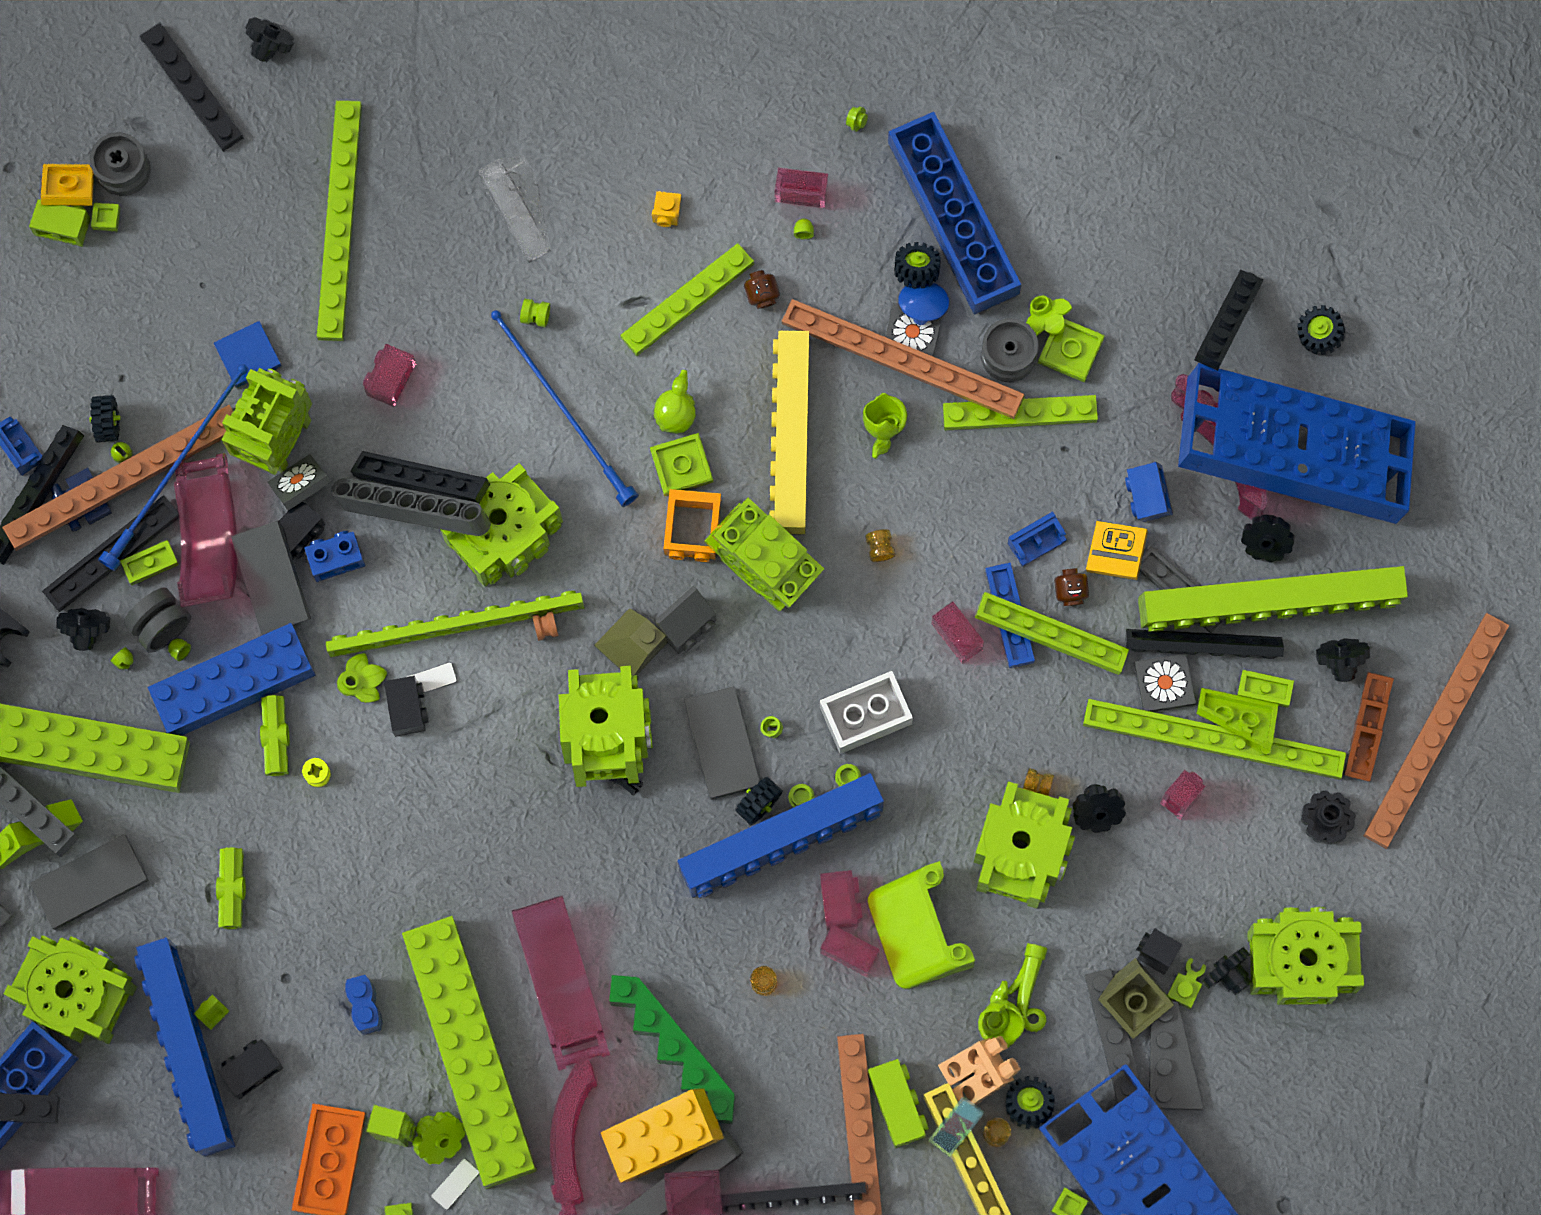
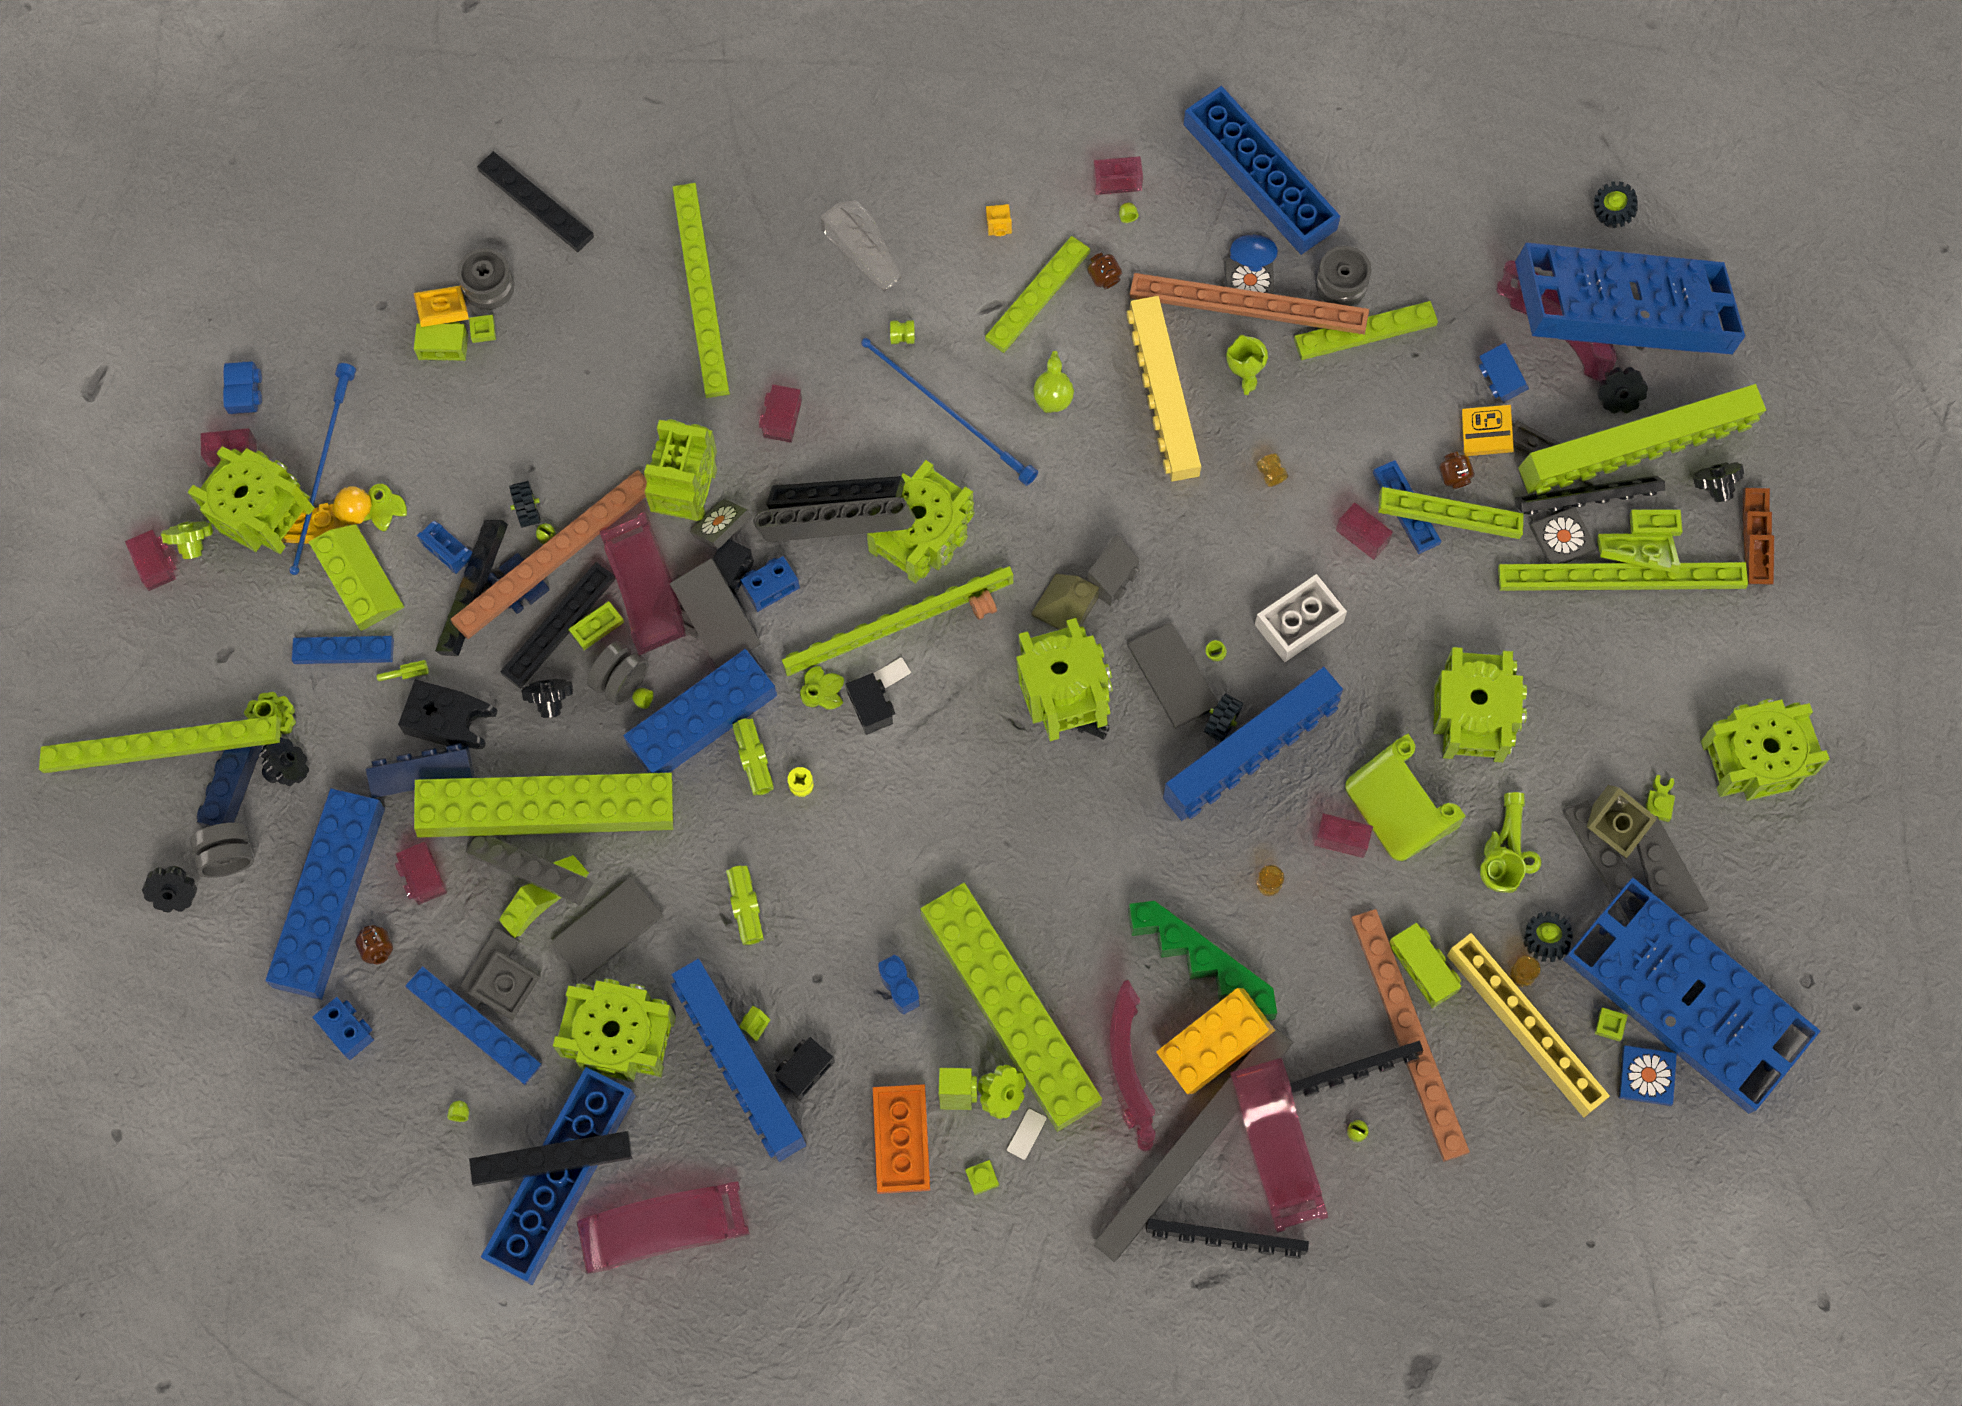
camera: 15 degrees left, 5 degrees down
(111, 559) = (560, 628): blue piece -> none
(123, 659) = (591, 718): lime hinge -> none
(247, 347) = (640, 421): blue tile -> none
(267, 39) = (597, 145): black plant -> none
(559, 980) = (1079, 921): clear pink windscreen -> none
(681, 464) = (1071, 437): lime plate -> none
(690, 499) = (1094, 465): light orange window -> none
(764, 554) = (1172, 494): lime piece -> none
(800, 794) = (1258, 705): lime plate -> none
(839, 899) = (1321, 791): clear pink brick -> none
(846, 774) = (1295, 678): lime plate -> none
(857, 118) = (1150, 109): lime plate -> none
(917, 265) = (1240, 221): black wheel -> none
(956, 1126) = (1491, 970): clear light blue slope -> none
(987, 1066) = (1502, 910): light nougat hips -> none
(1032, 781) = (1478, 646): clear yellow wheel -> none
(1037, 539) = (1413, 435): blue hinge -> none
(1048, 315) = (1370, 239): lime plate -> none
(1072, 351) = (1397, 266): lime plate -> none
(1099, 808) = (1538, 658): black plant -> none
(1158, 950) = (1629, 772): black brick -> none
(1183, 793) = (1611, 628): clear pink brick -> none
(1228, 320) = (1536, 207): black plate -> none
(1230, 972) = (1700, 778): black plant -> none
(1319, 826) = (1745, 623): black plant -> none
(1436, 731) = (1818, 529): nougat plate -> none

